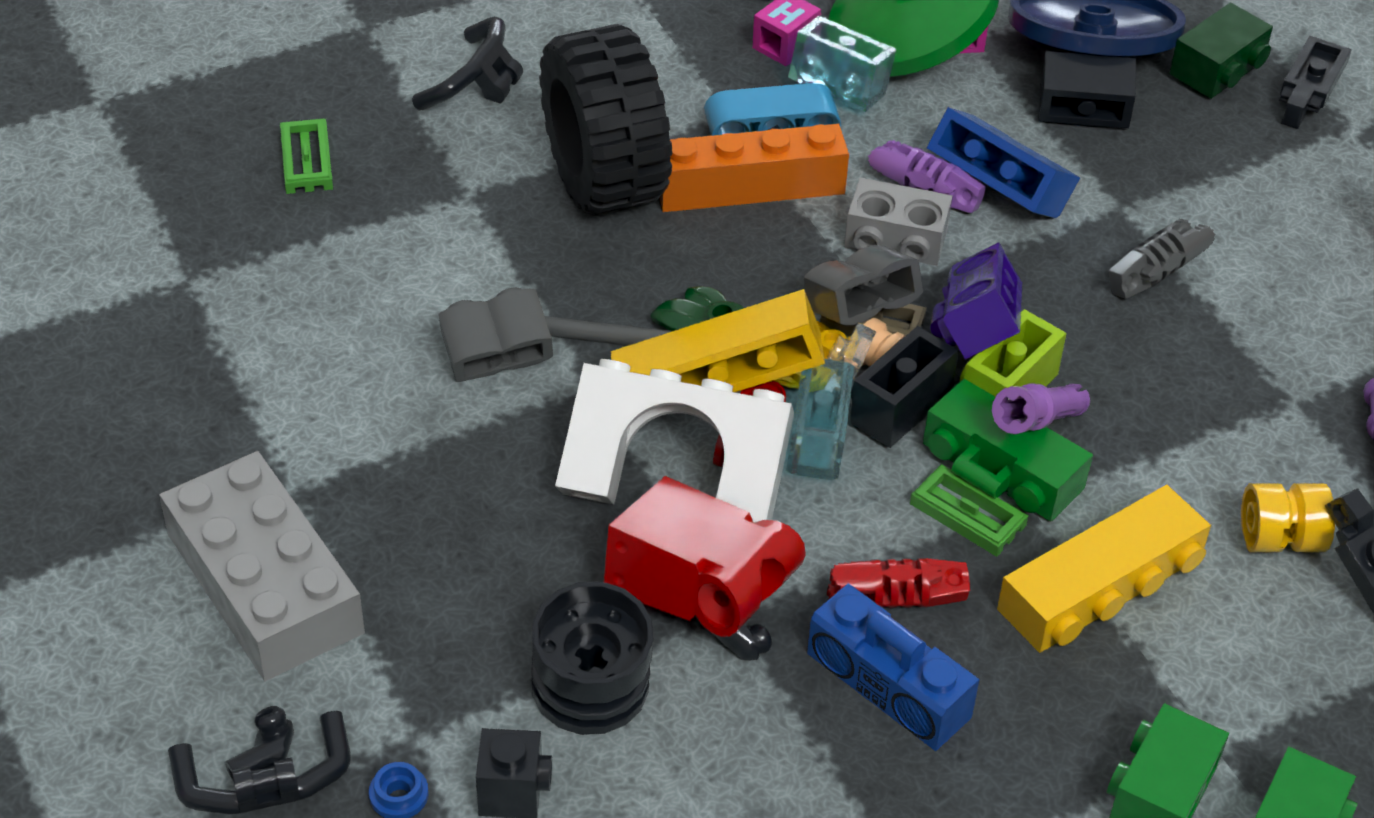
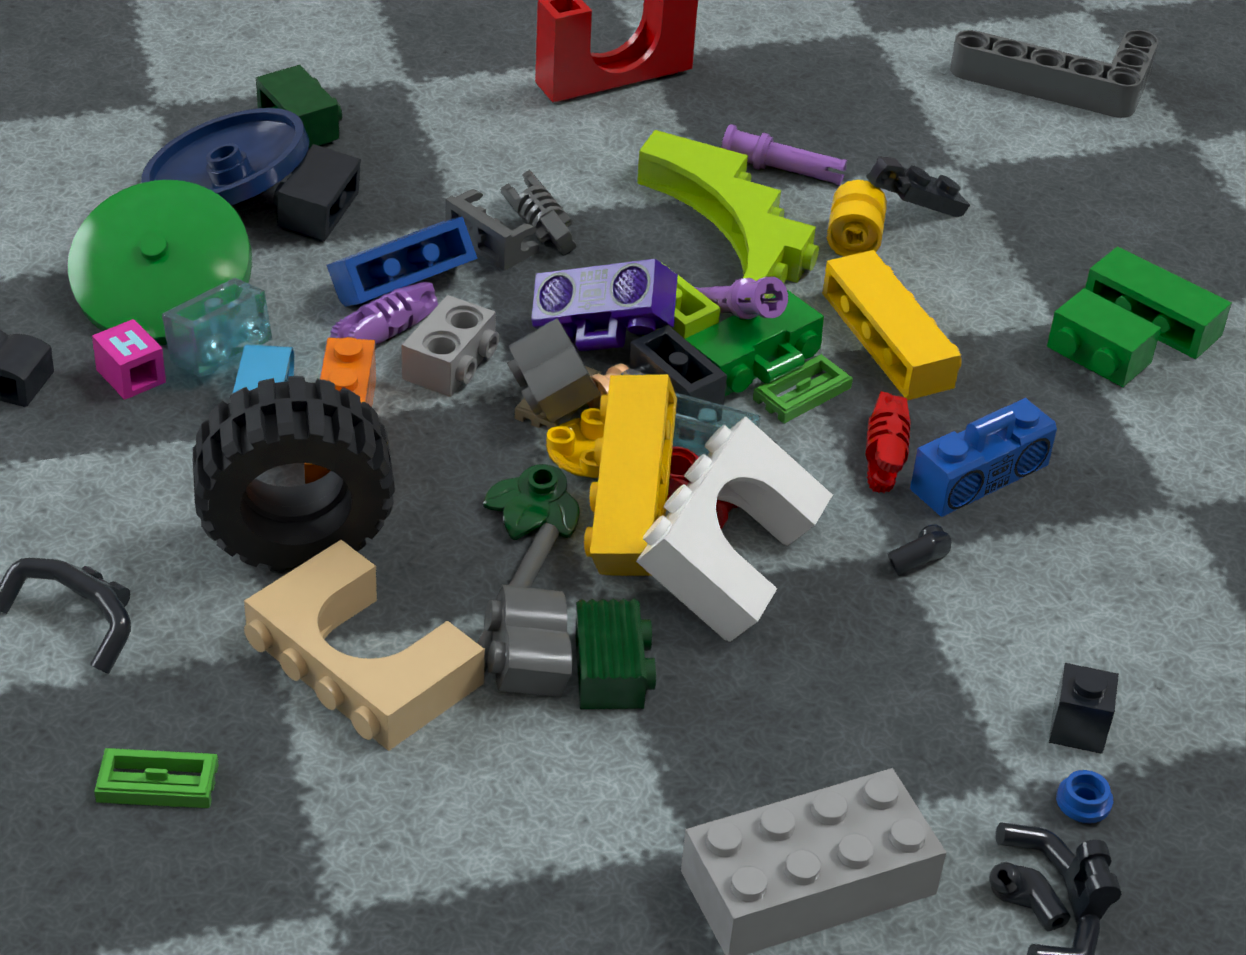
camera: 80 degrees left, 5 degrees down
(480, 188) = (382, 695): none -> tan arch
(499, 396) = (611, 654): none -> dark green brick
(591, 657) = (975, 625): black wheel -> none
(699, 556) = (870, 538): red piece -> none
(1107, 223) = (489, 235): none -> dark grey hinge
(1245, 422) = (722, 191): none -> lime arch
(1312, 79) = (348, 78): black hinge -> none

